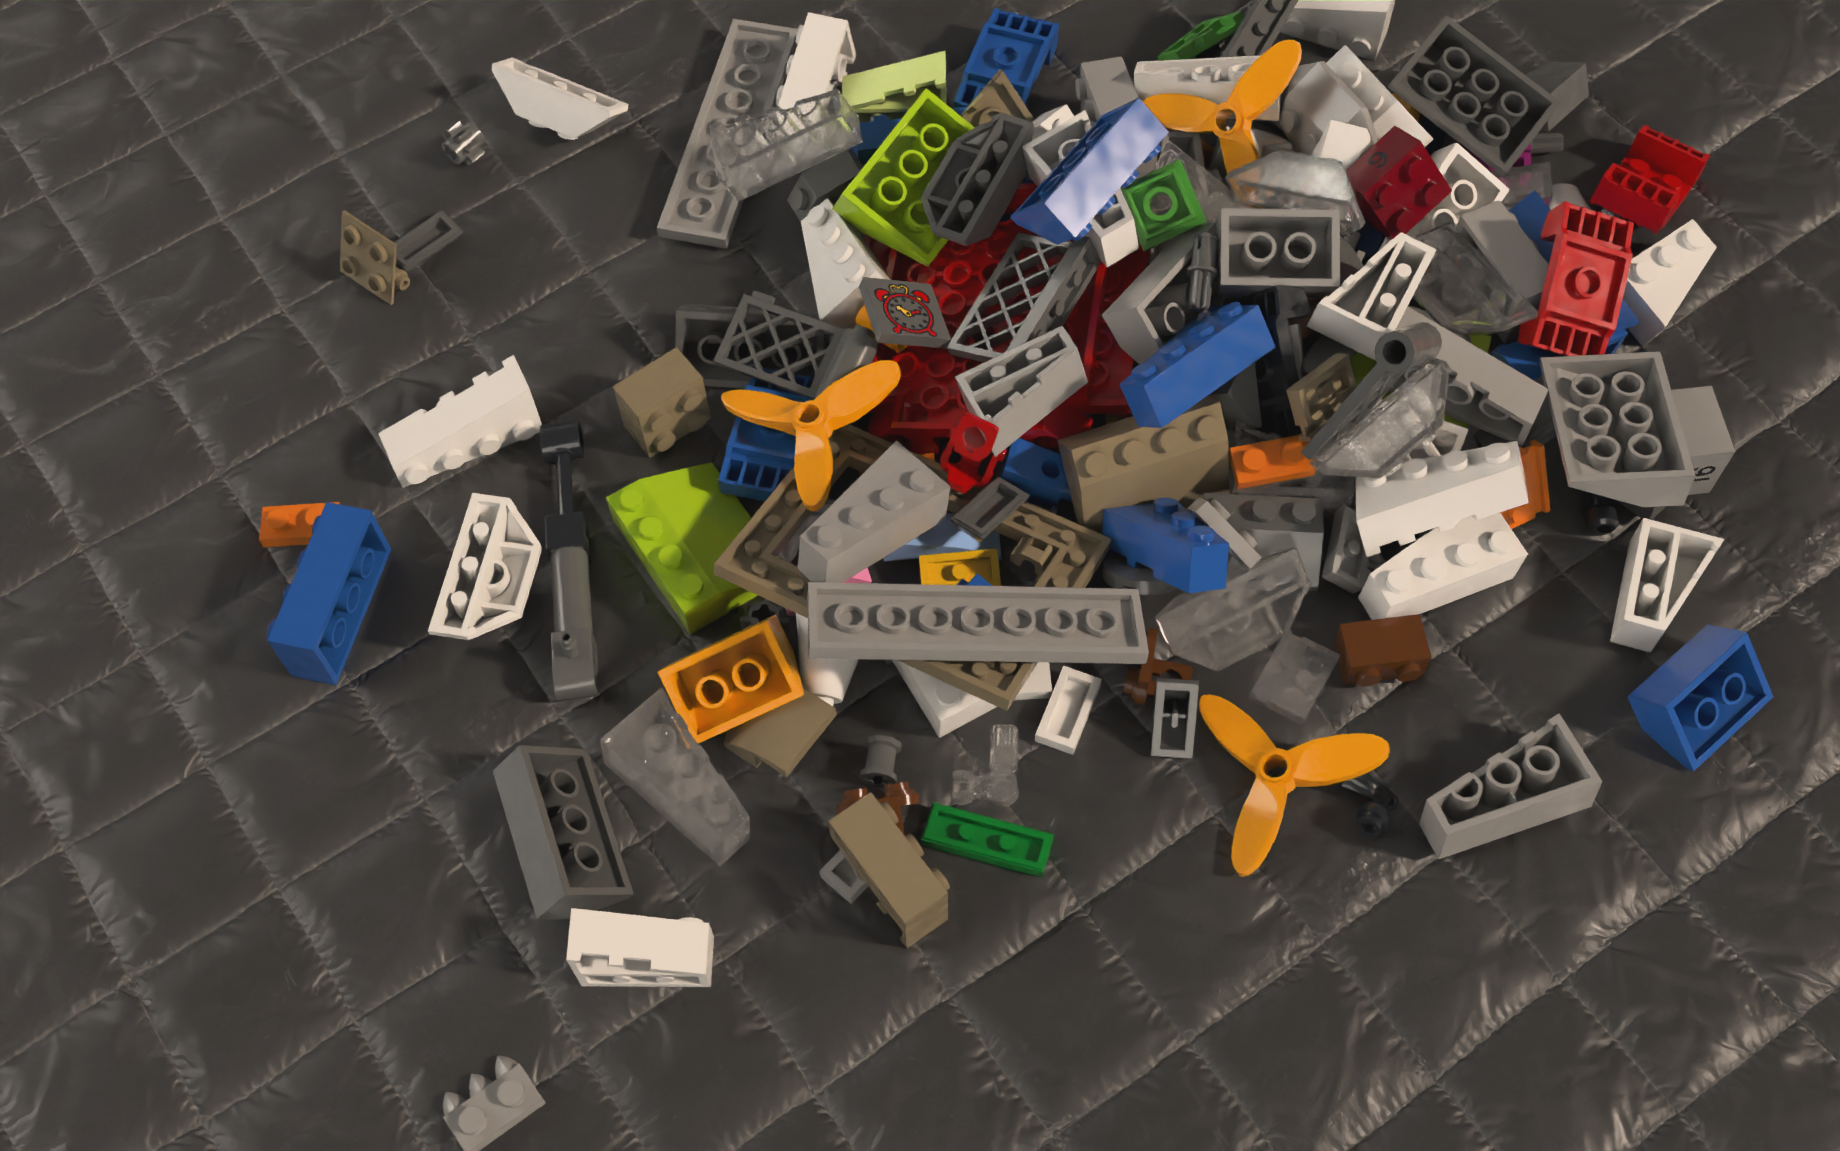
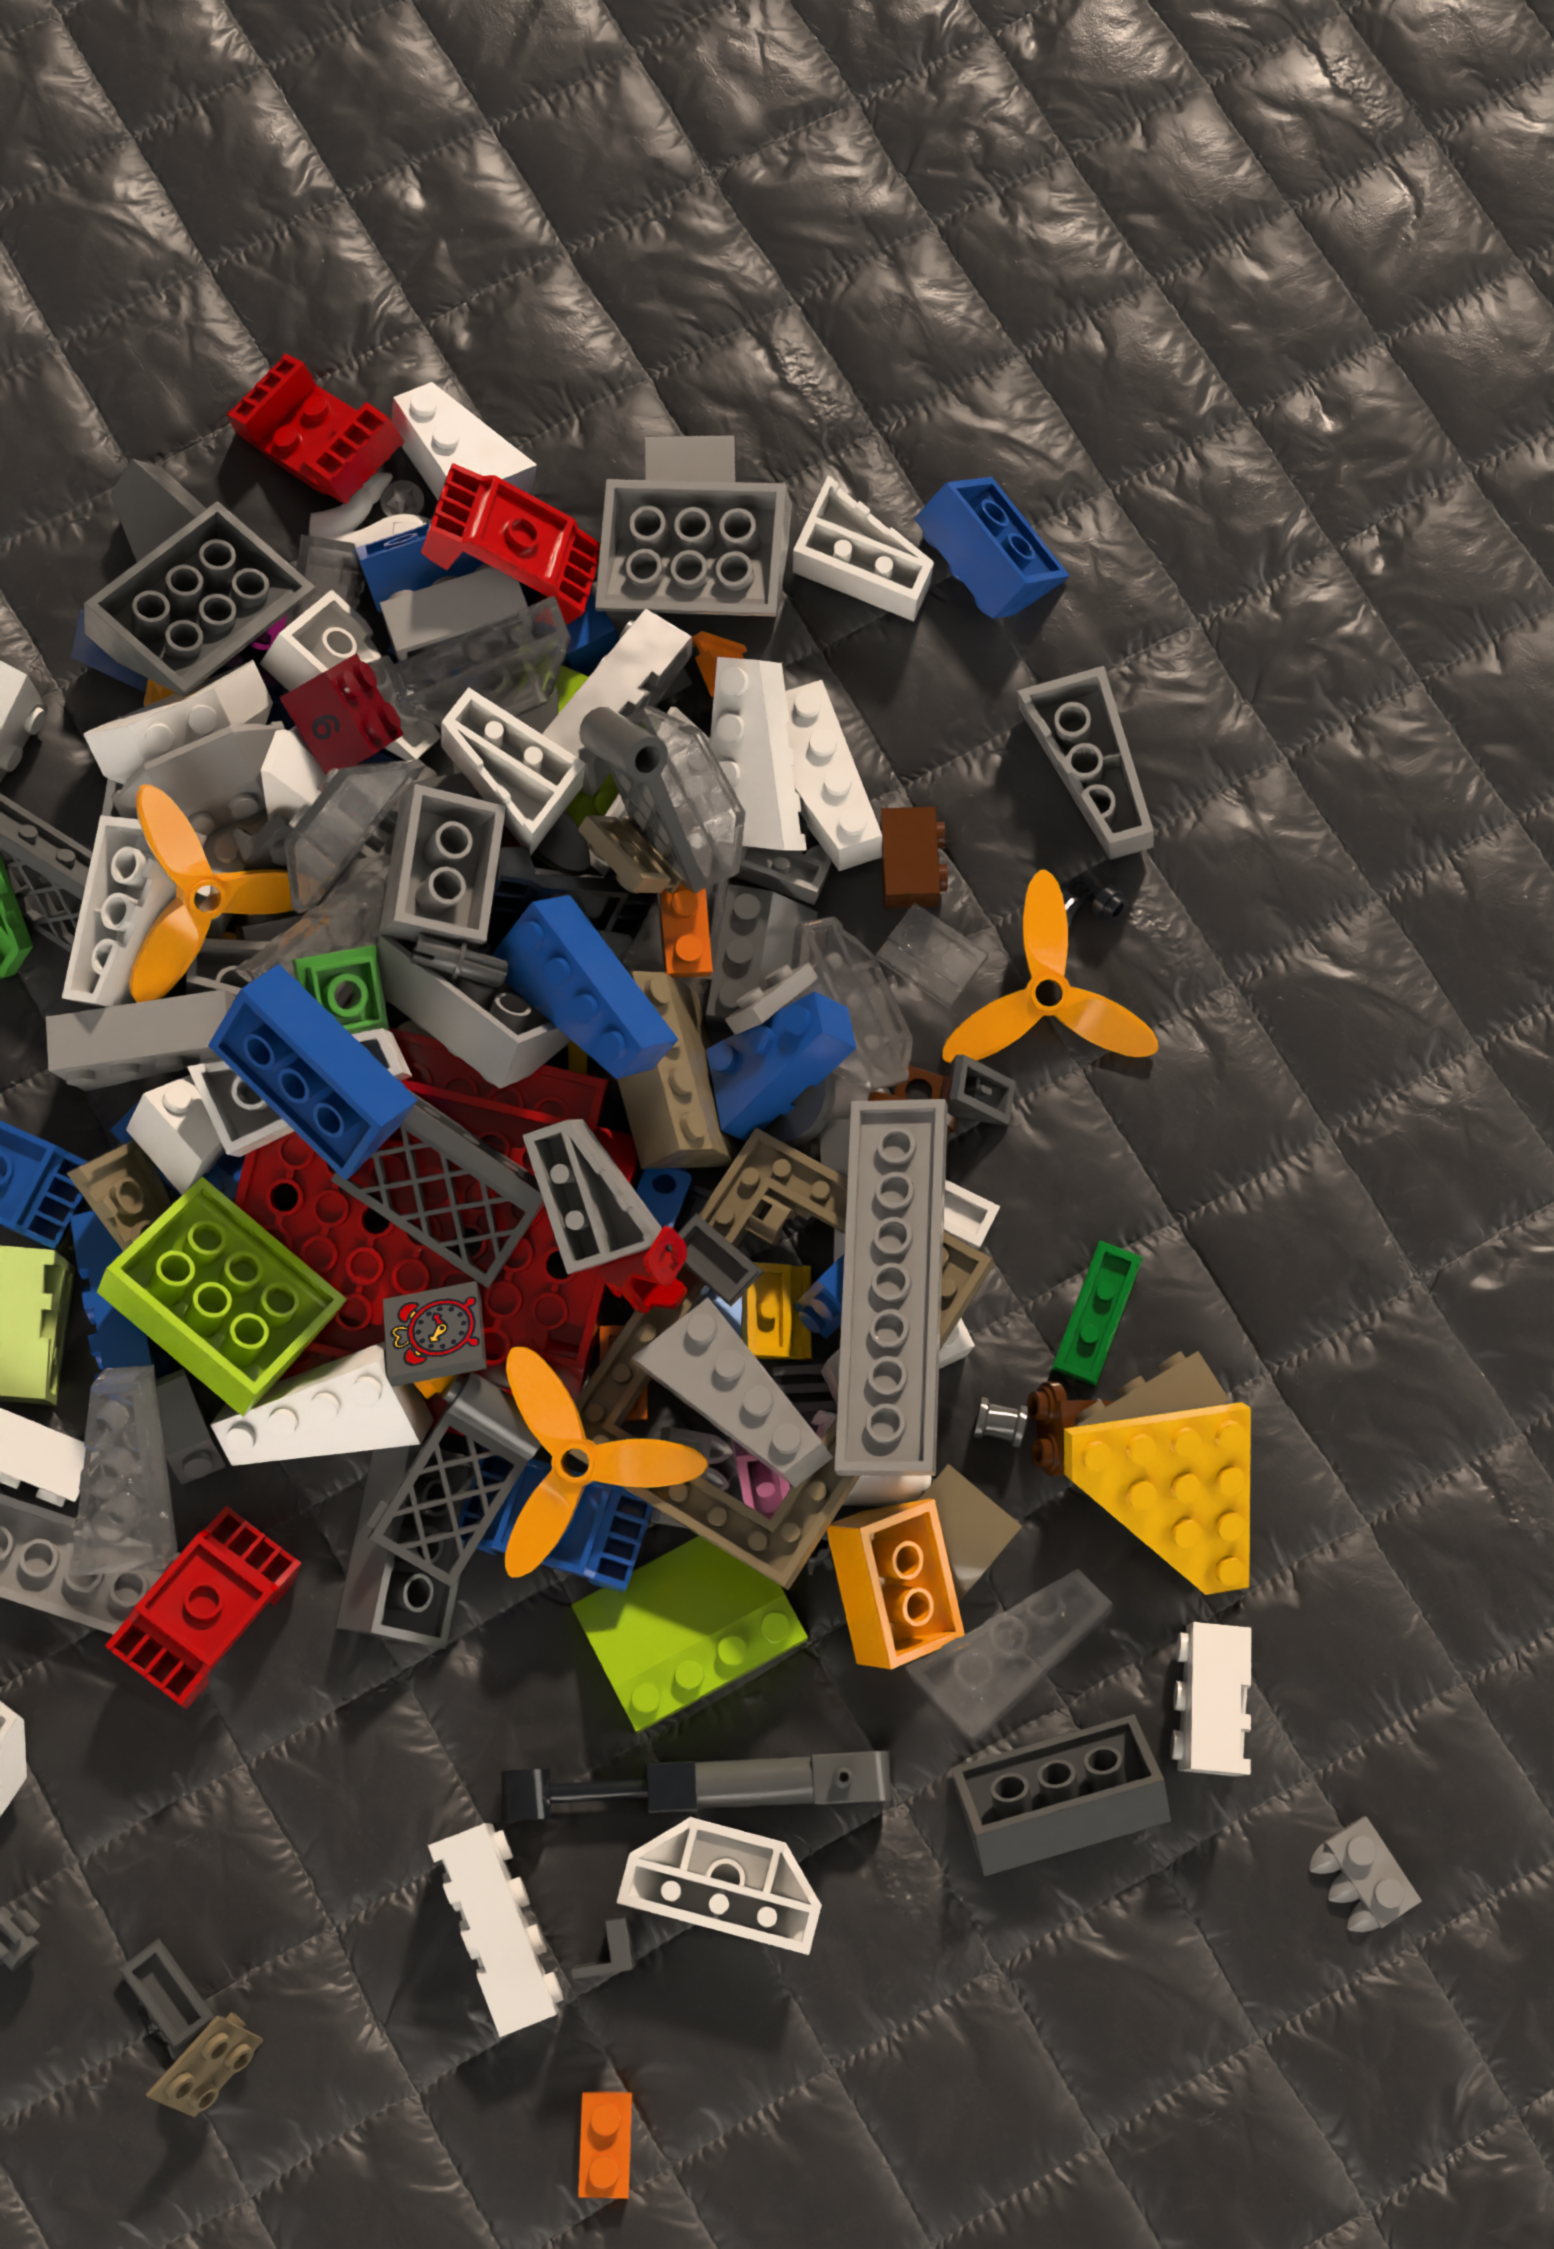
camera: 90 degrees left, 15 degrees up
(329, 593) = (733, 2090): blue brick -> none
(439, 500) = (620, 1949): none -> dark grey panel
(662, 402) = (497, 1656): dark tan brick -> none
(695, 215) = (203, 1606): none -> red plate
(825, 887) = (1176, 1486): none -> yellow plate
(977, 180) = (253, 1224): dark grey wedge -> none
(1000, 784) = (1037, 1298): clear bar -> none

